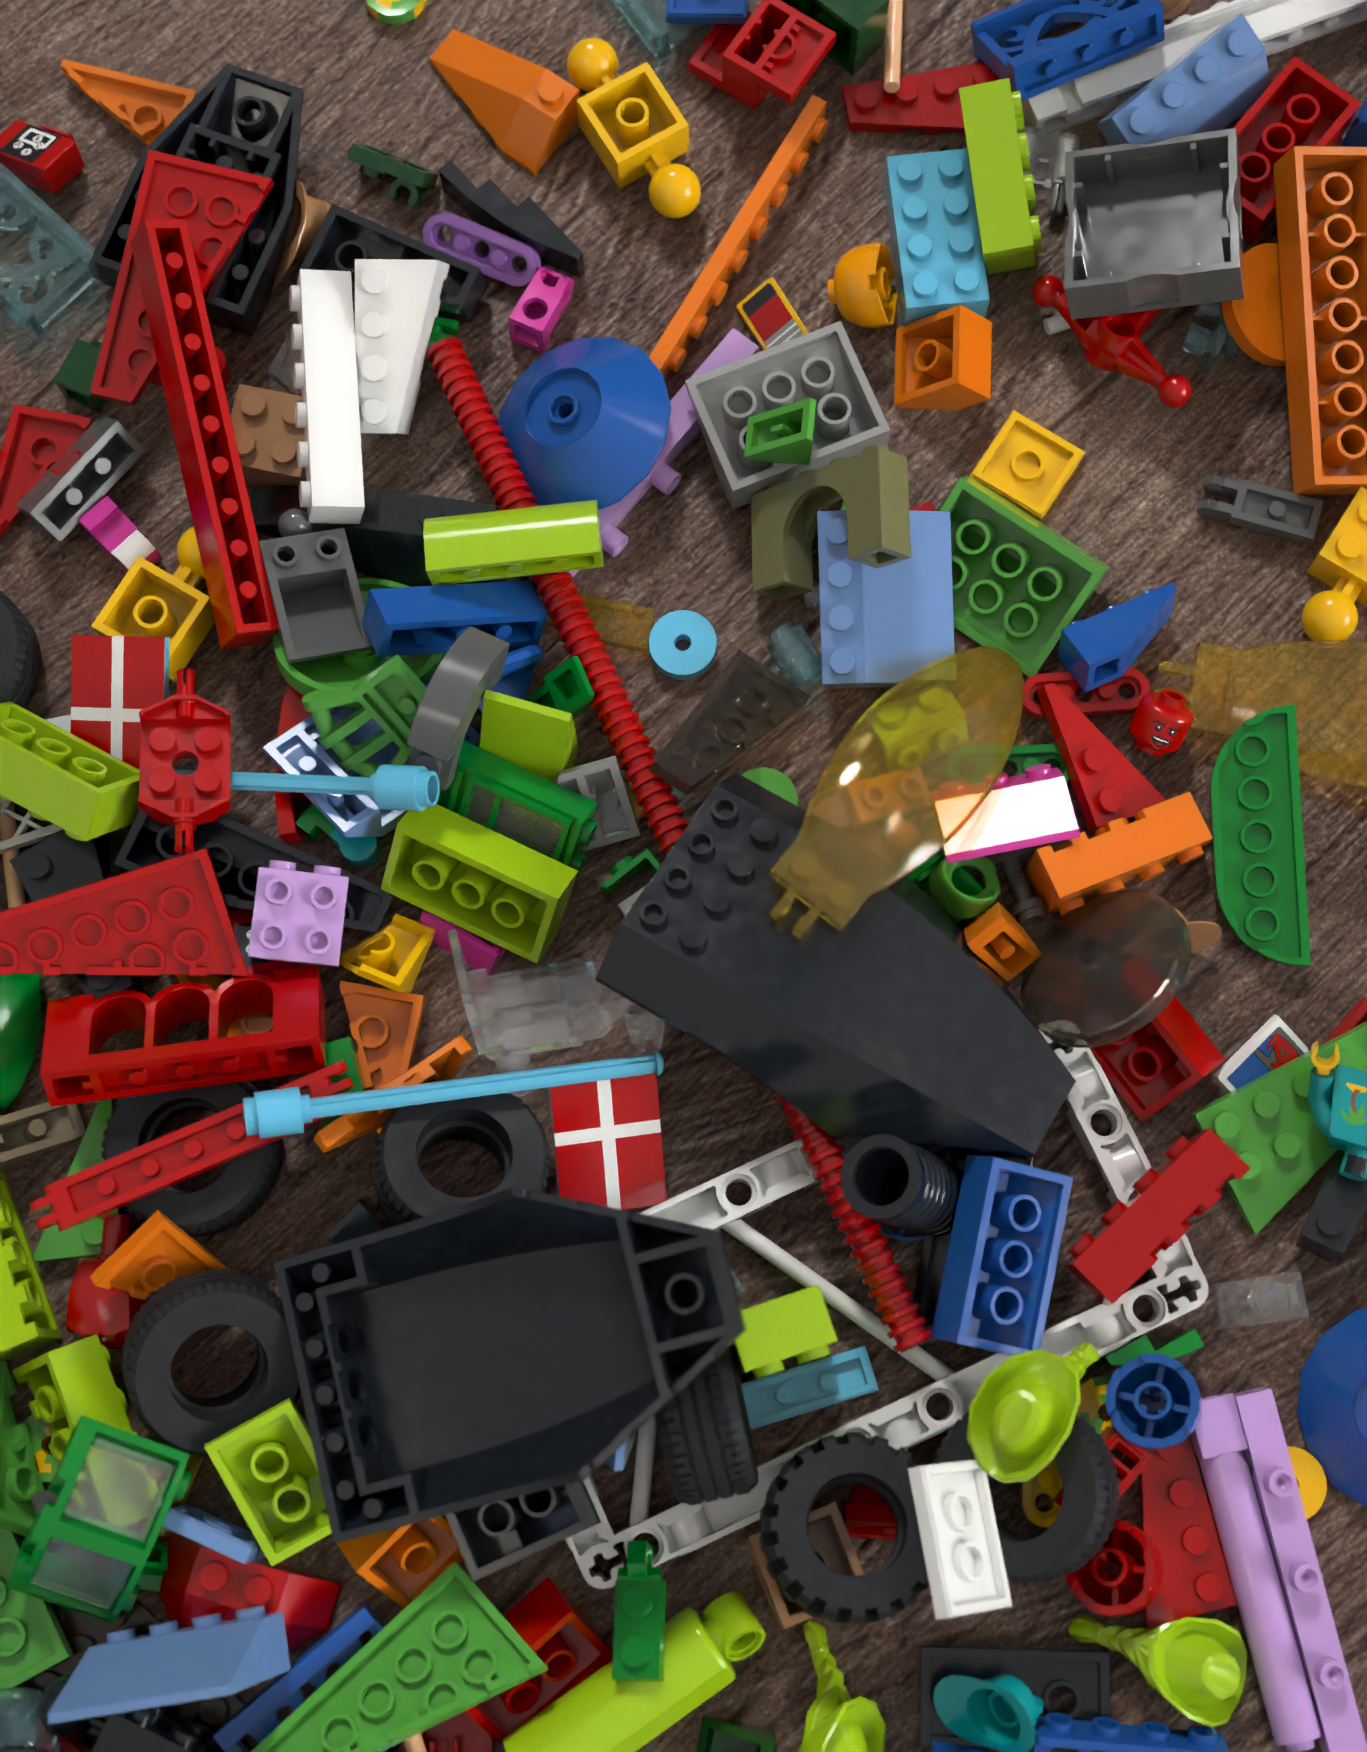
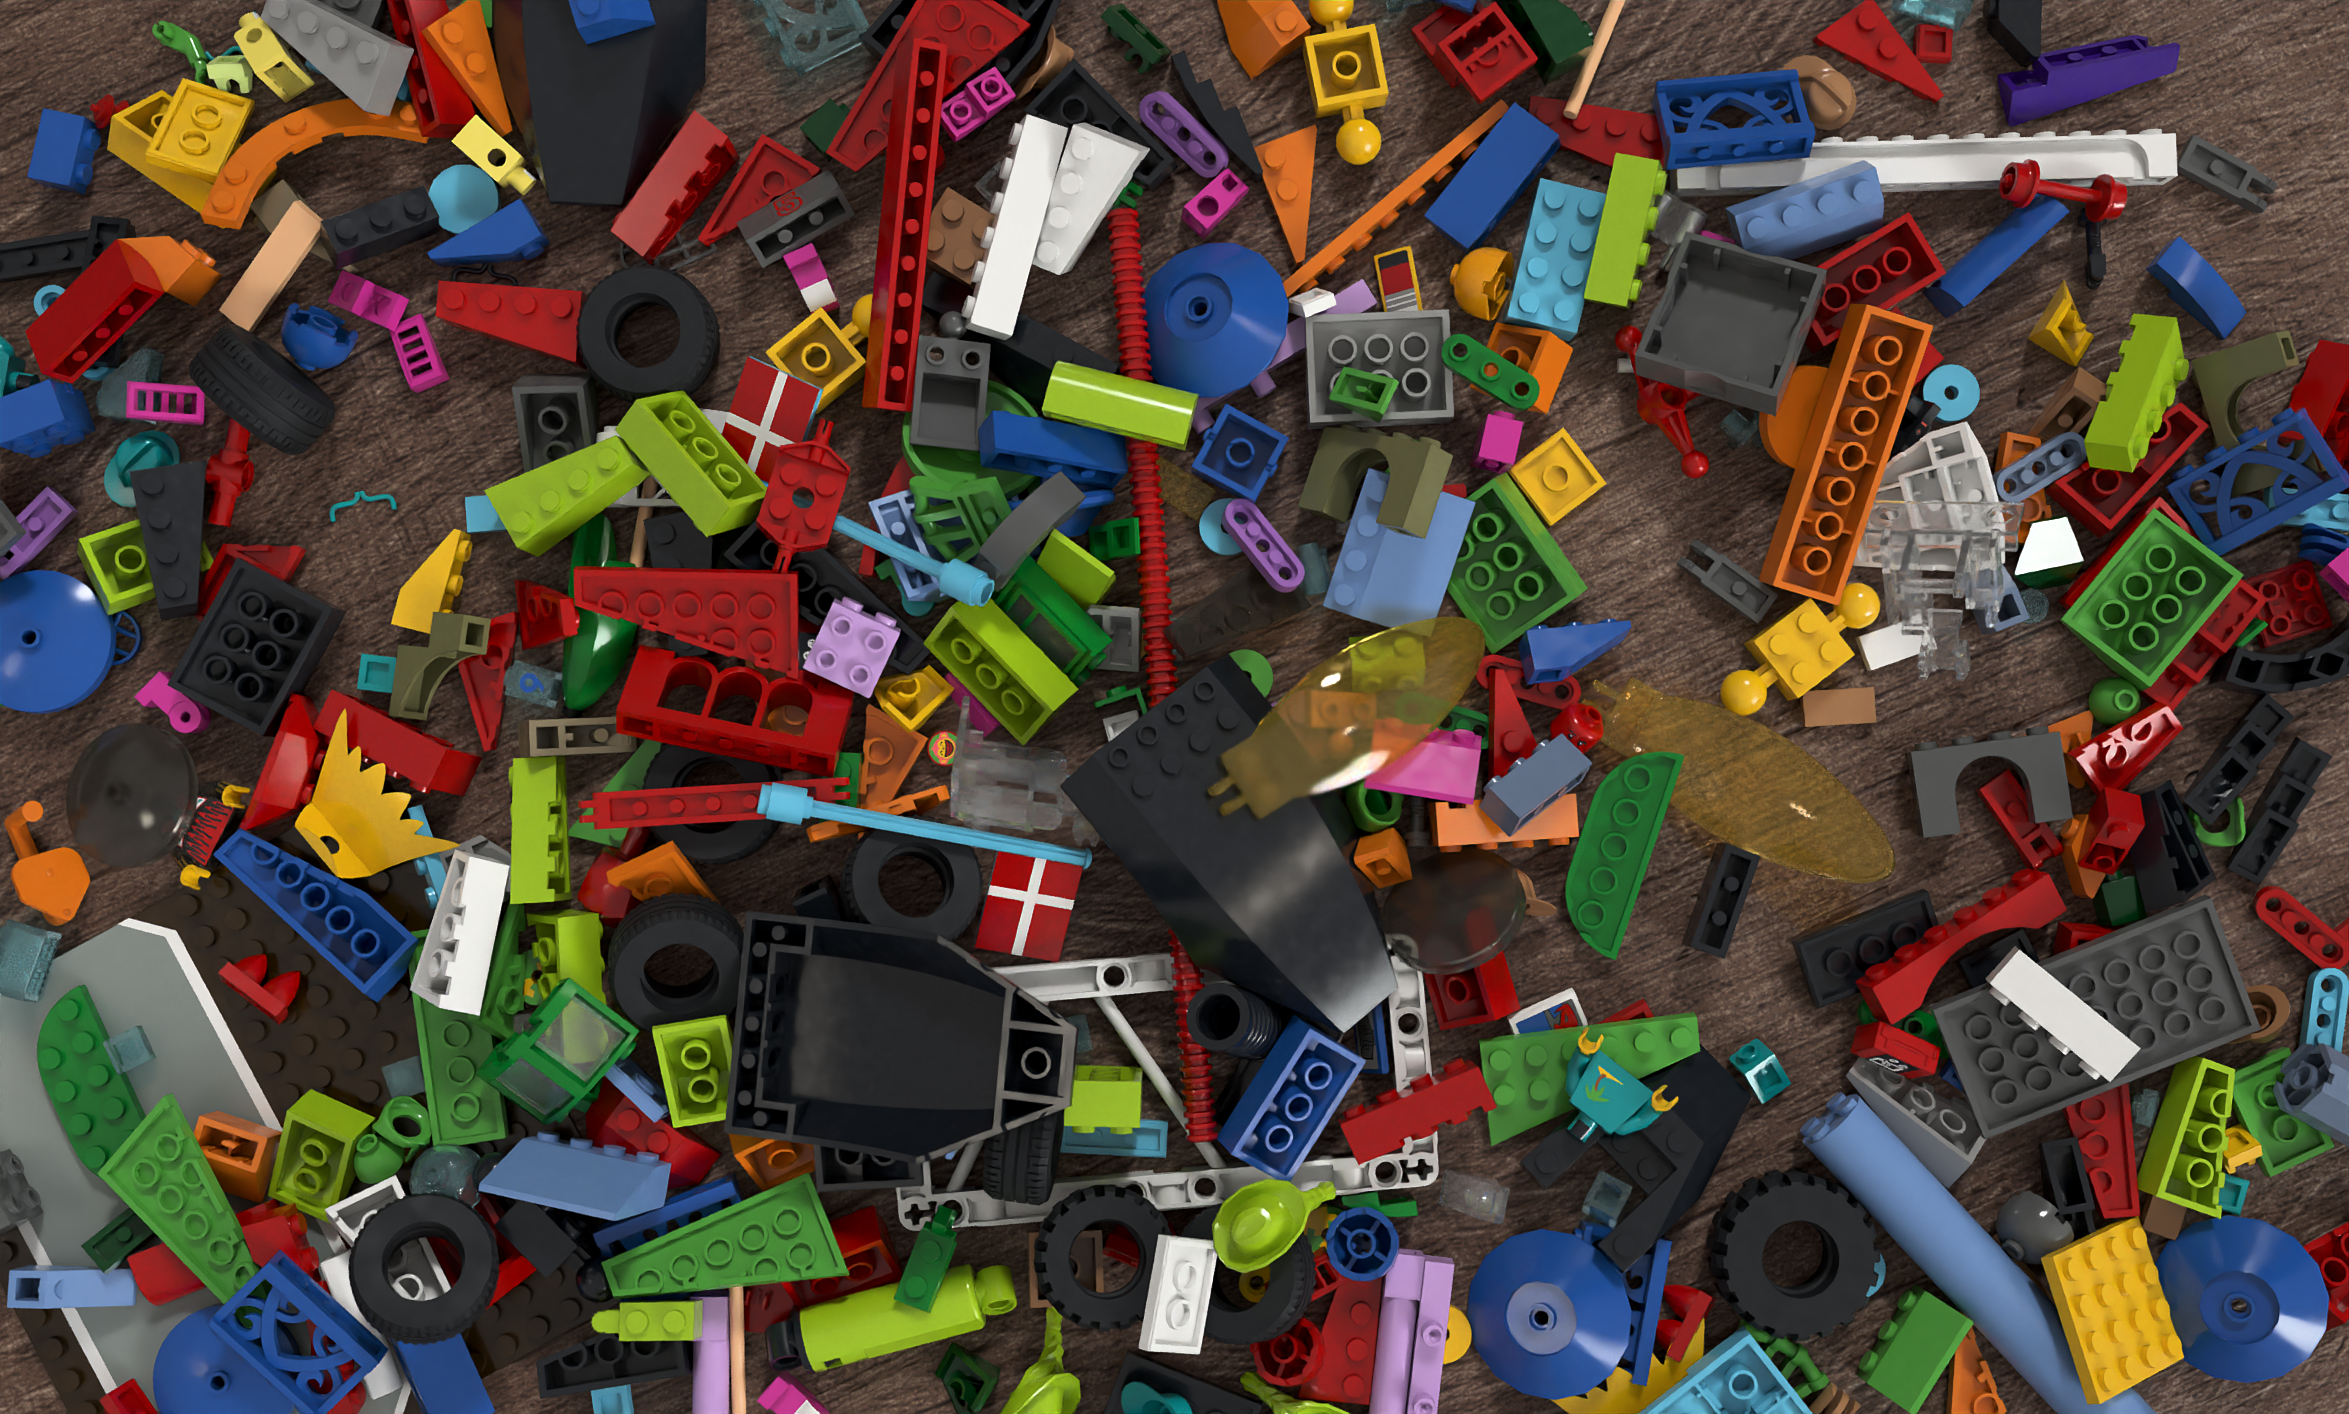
camera: 15 degrees right, 10 degrees up
(241, 285) = (976, 104): none -> dark pink slope
(445, 1003) = (942, 748): none -> tile
(616, 264) = (1288, 182): none -> orange wing
(666, 557) = (1239, 454): none -> blue brick
(687, 366) = (1311, 302): none -> white tile
(716, 634) = (1259, 531): none -> medium lavender plate
(835, 179) = (1493, 179): none -> blue brick
(926, 378) = (1499, 386): none -> green plate
(948, 444) = (1497, 442): none -> dark pink brick
(1065, 1155) = (1371, 1042): none -> slope
(1139, 792) = (1534, 784): none -> sand blue brick

